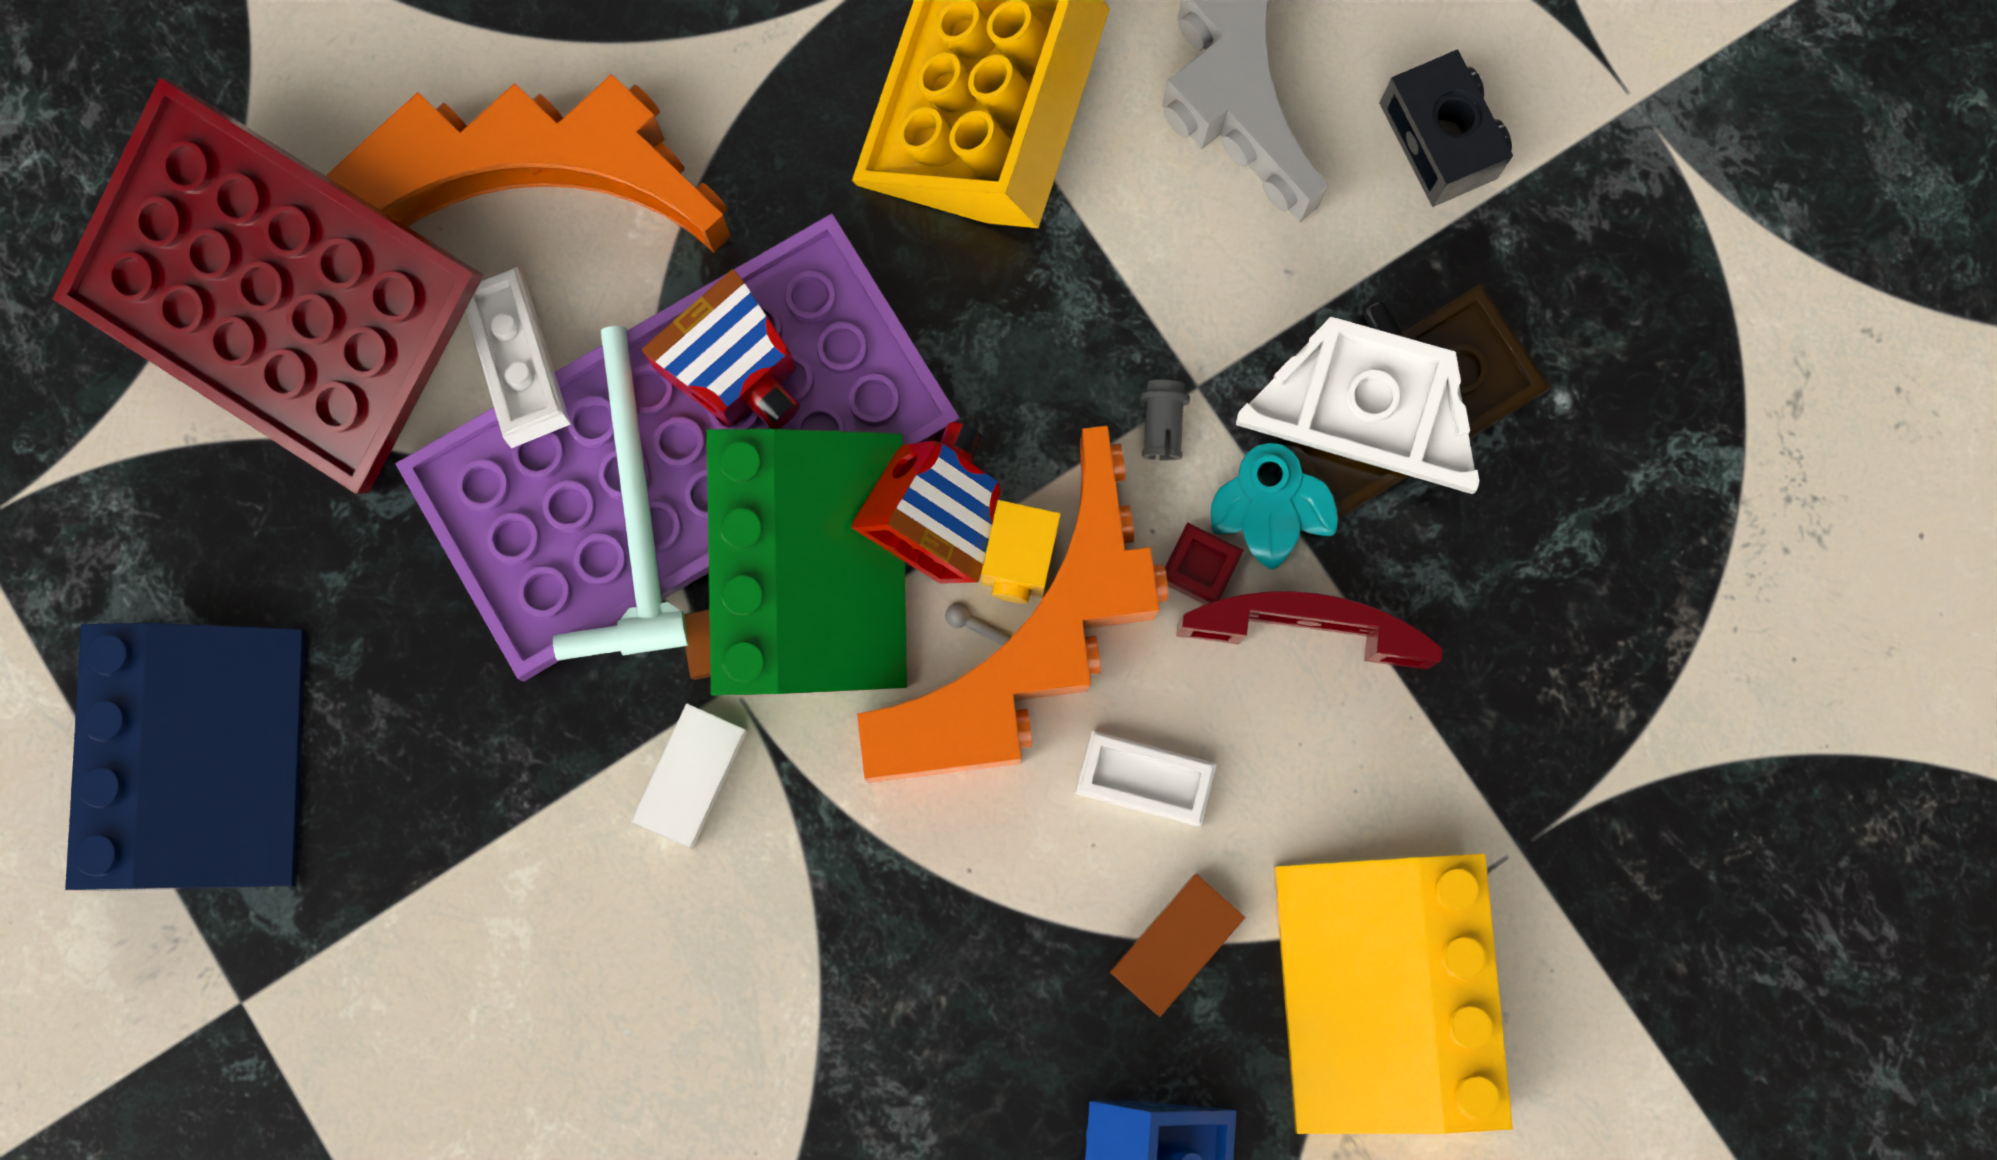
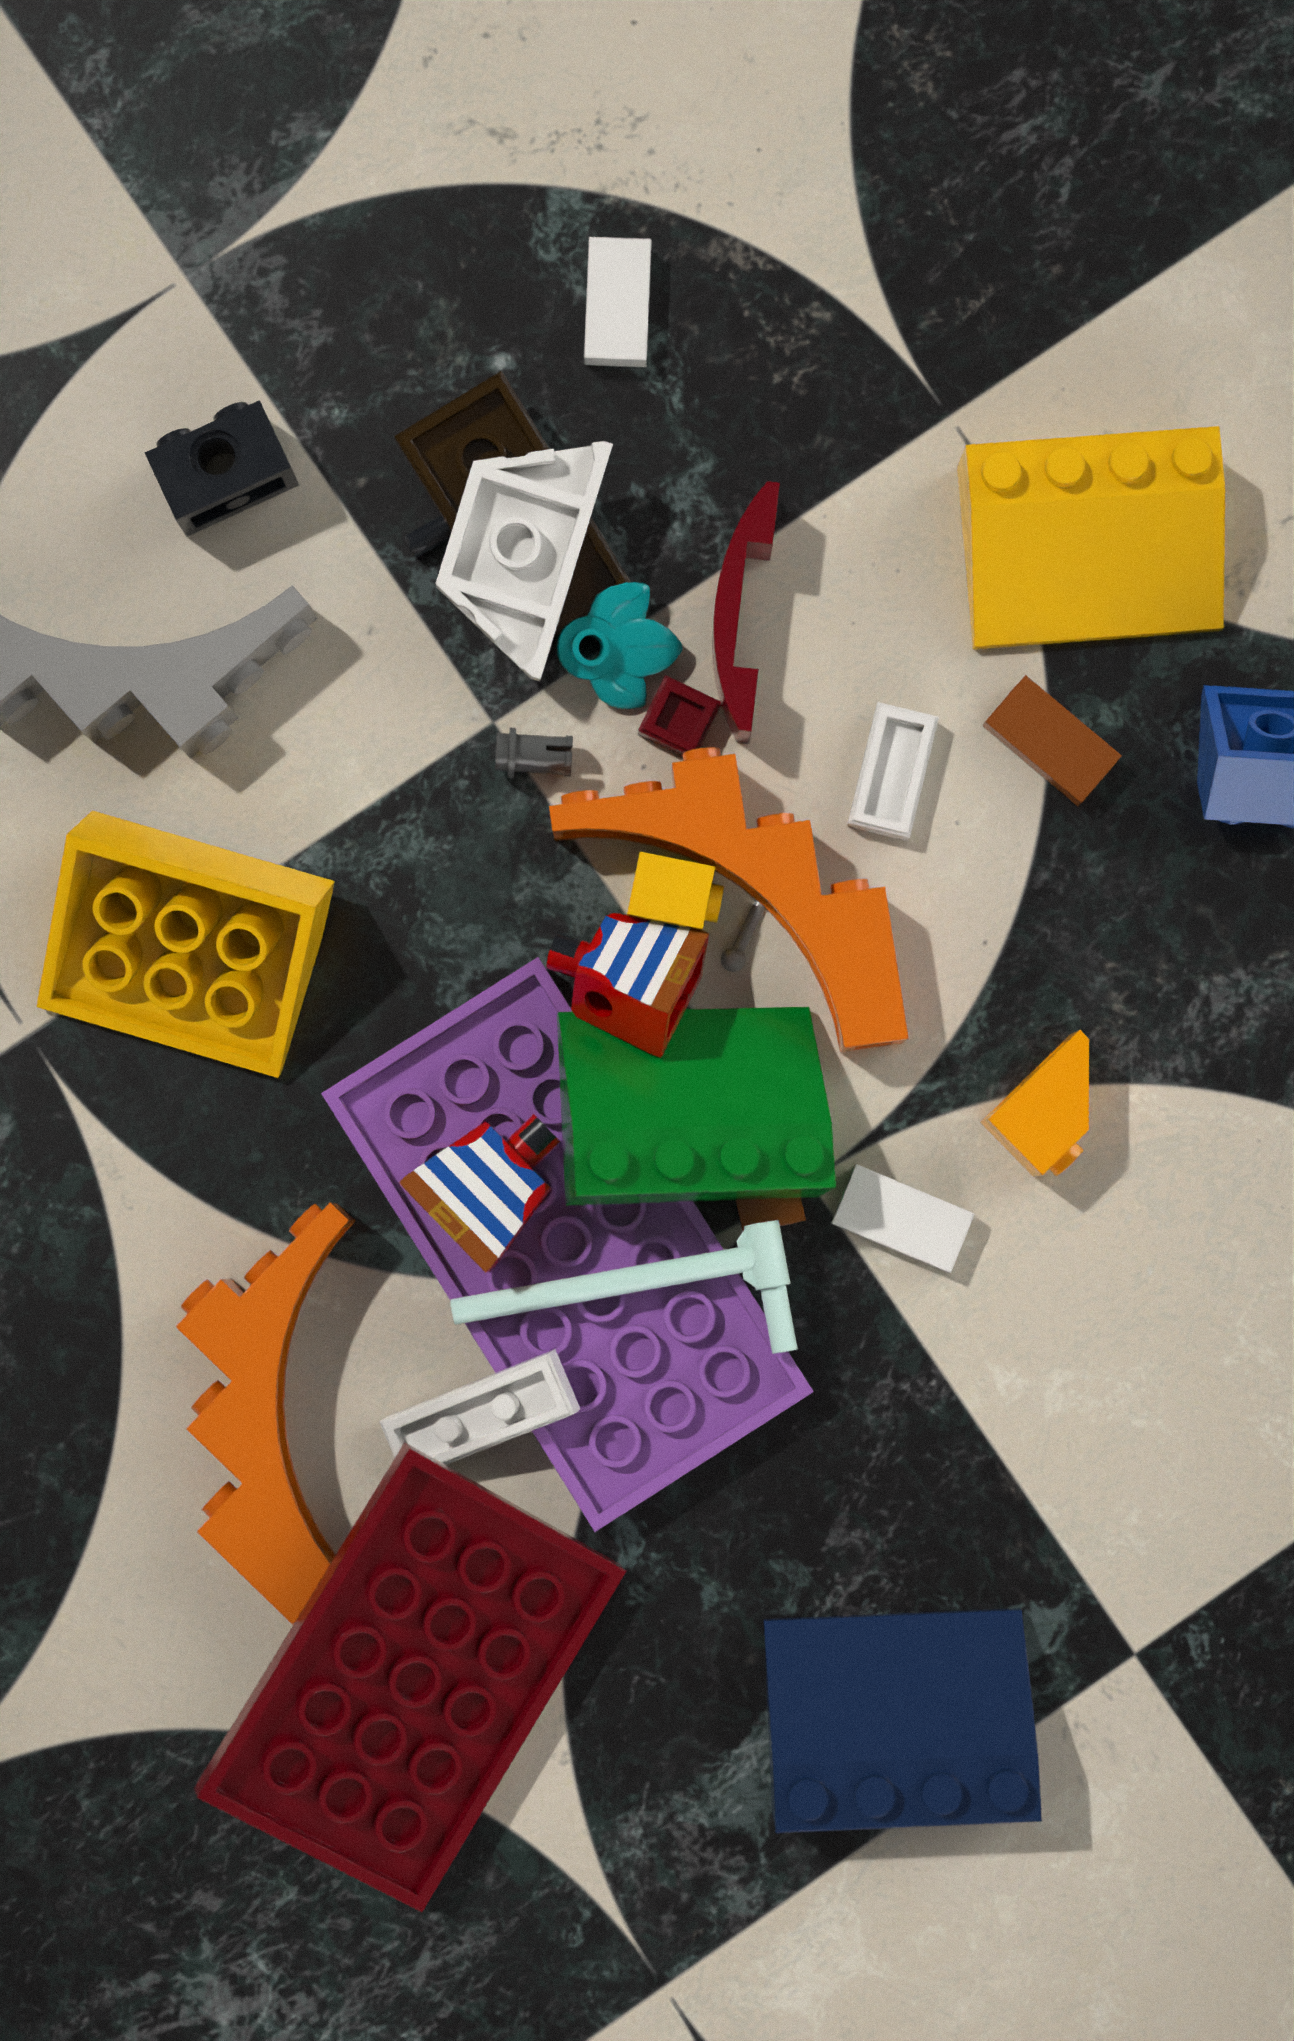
camera: 90 degrees left, 5 degrees up
(789, 923) = (1047, 1110): none -> light orange slope
(1627, 511) = (617, 302): none -> white tile

